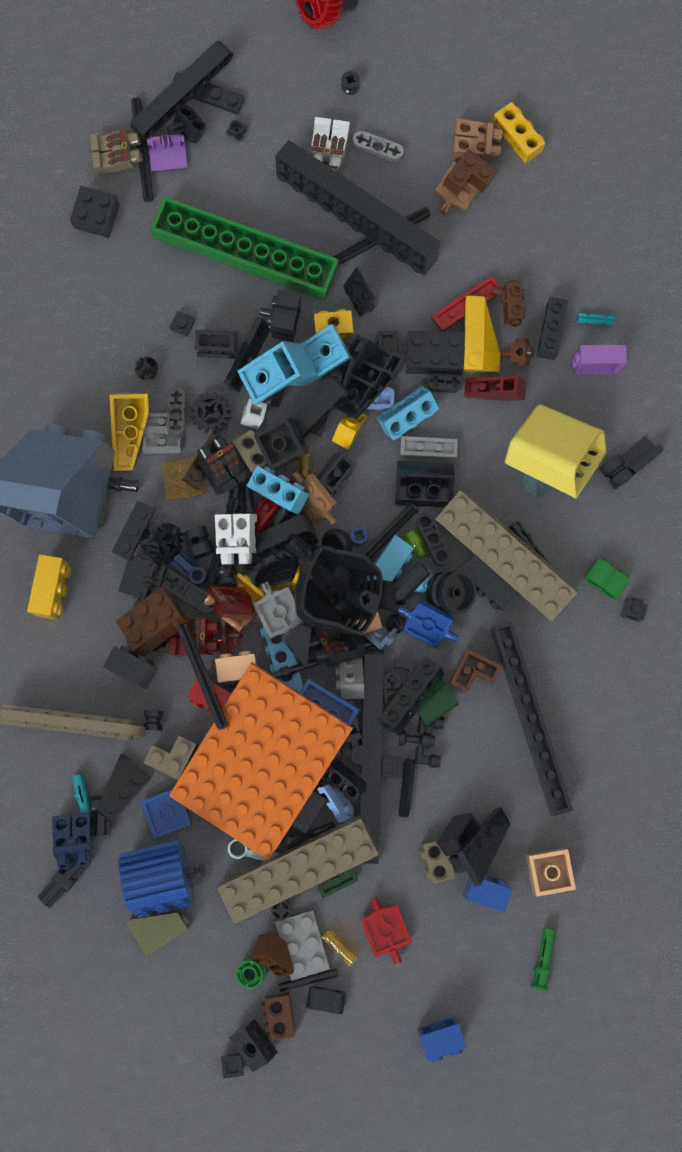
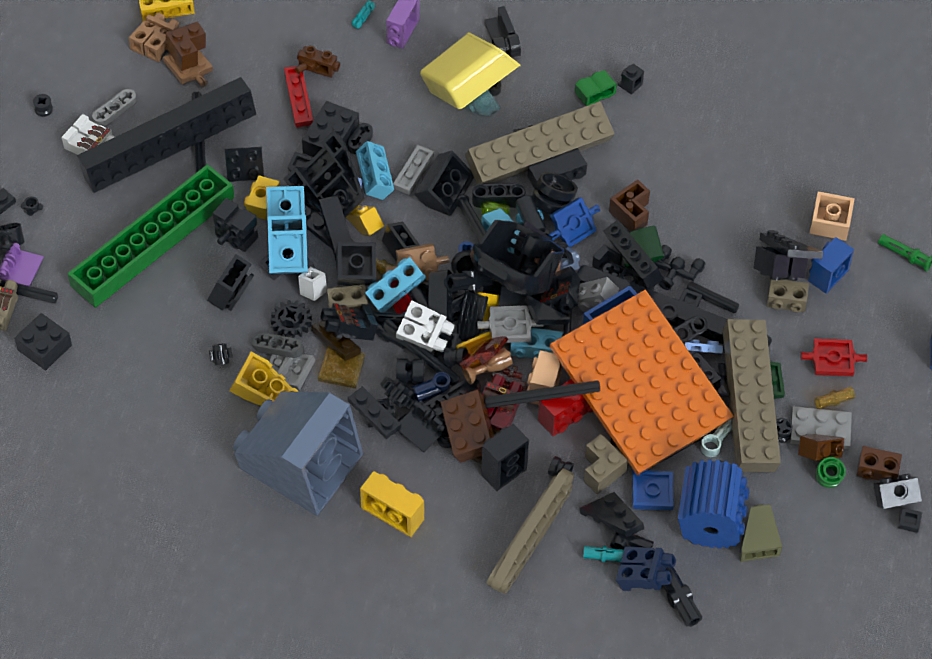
camera: 65 degrees left, 25 degrees down
(182, 323) = (191, 314): black plate -> none
(250, 348) = (258, 279): black plate -> none
(308, 980) = (854, 435): black bar -> none
(326, 1000) = (878, 424): black axle -> none
(480, 342) = (321, 91): yellow wedge -> none
(496, 388) = (386, 102): dark red slope -> none
(520, 352) = (366, 69): reddish brown brick -> none
(531, 719) = (694, 181): black brick -> none
(552, 328) = (355, 44): black brick -> none

